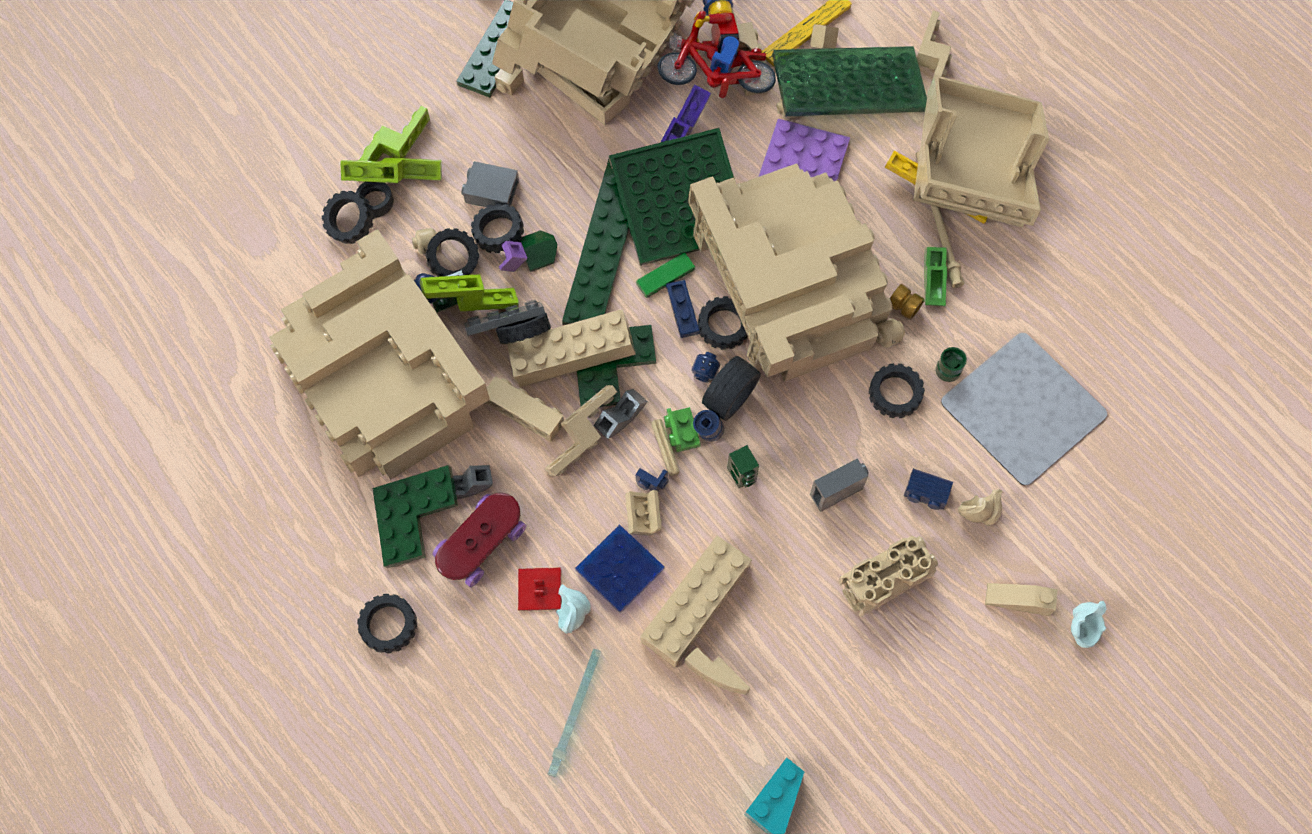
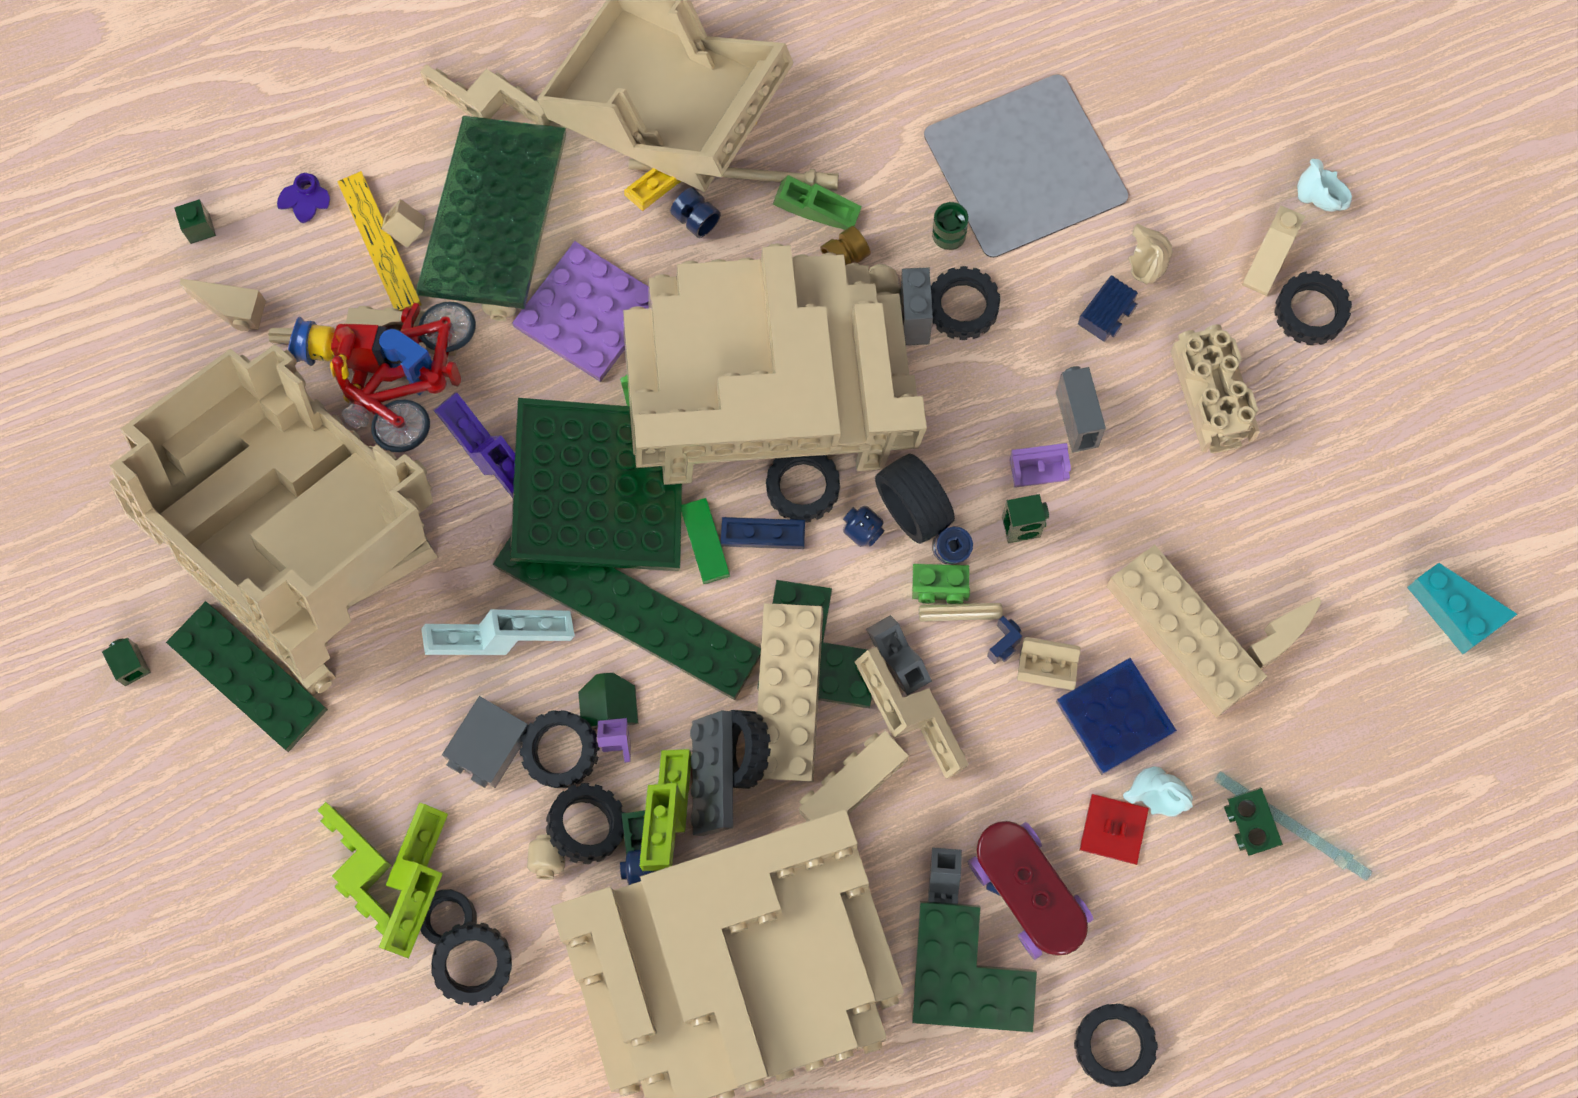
camera: 70 degrees left, 5 degrees up
(562, 168) = (497, 632): none -> light aqua bracket
(570, 684) = (1260, 819): none -> dark green brick
(790, 472) = (1040, 465): none -> medium lavender hinge
(876, 352) = (916, 305): none -> dark grey brick
(897, 201) = (695, 212): none -> dark blue wheel
(1003, 625) = (1315, 282): none -> black tyre

